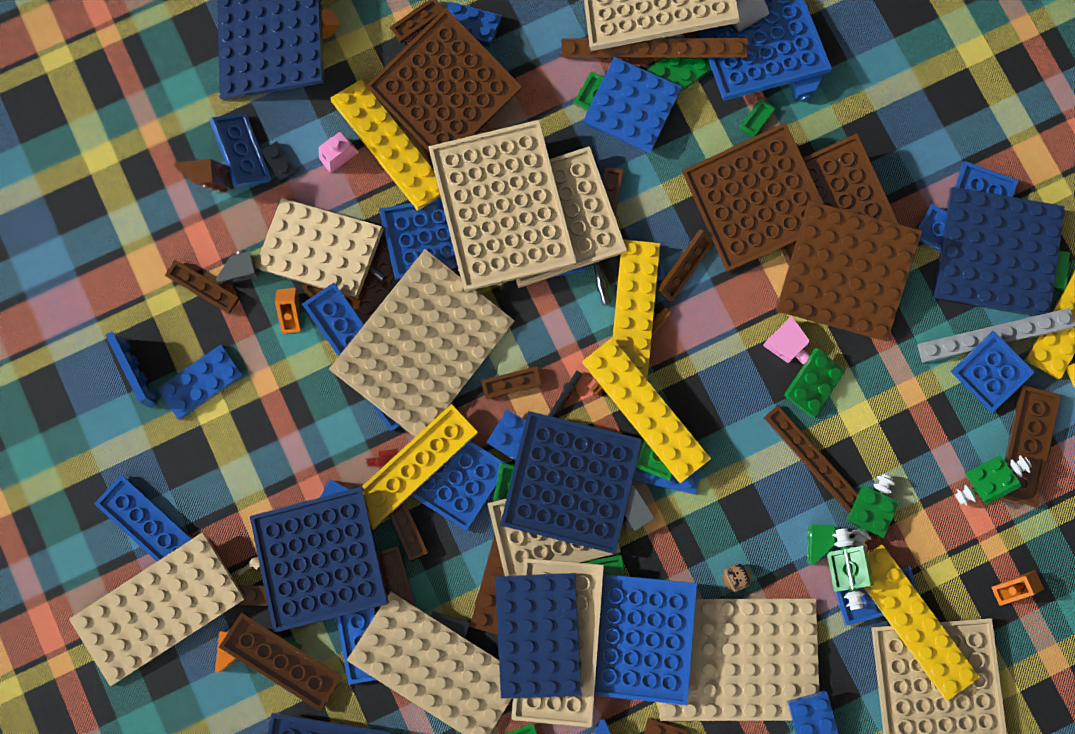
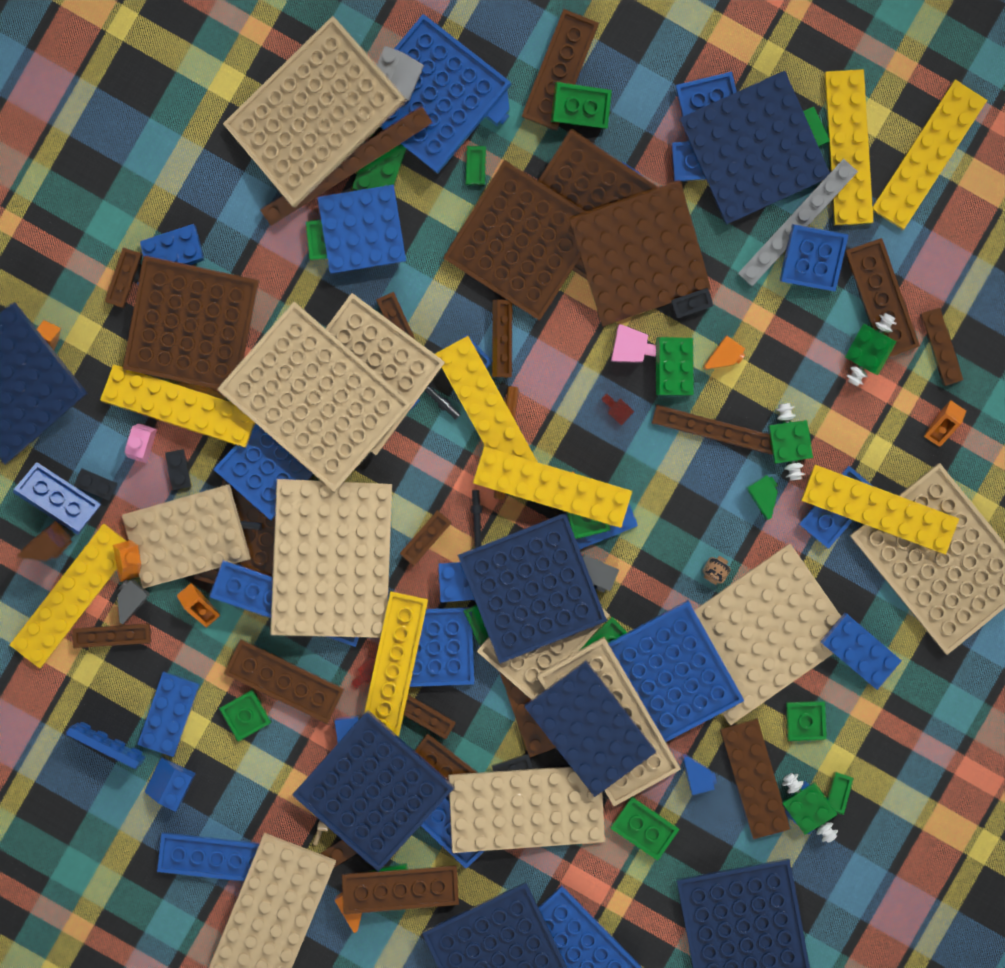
camera: 30 degrees left, 10 degrees up
(158, 439) = (169, 784): none -> blue slope
(194, 235) = (69, 598): none -> yellow plate
(258, 235) = (127, 560): none -> orange slope
(260, 426) = (245, 715): none -> green tile
(312, 420) = (284, 681): none -> reddish brown plate
(351, 194) = (178, 469): none -> black plate
(743, 388) = (619, 410): none -> clear red plate
(850, 569) = (802, 503): plate -> none
(863, 342) = (692, 303): none -> black plate
(864, 402) = (725, 354): none -> orange slope
(876, 89) = (561, 64): none -> reddish brown plate
(876, 126) = (581, 105): none -> green plate
(1055, 521) = (942, 346): none -> reddish brown plate

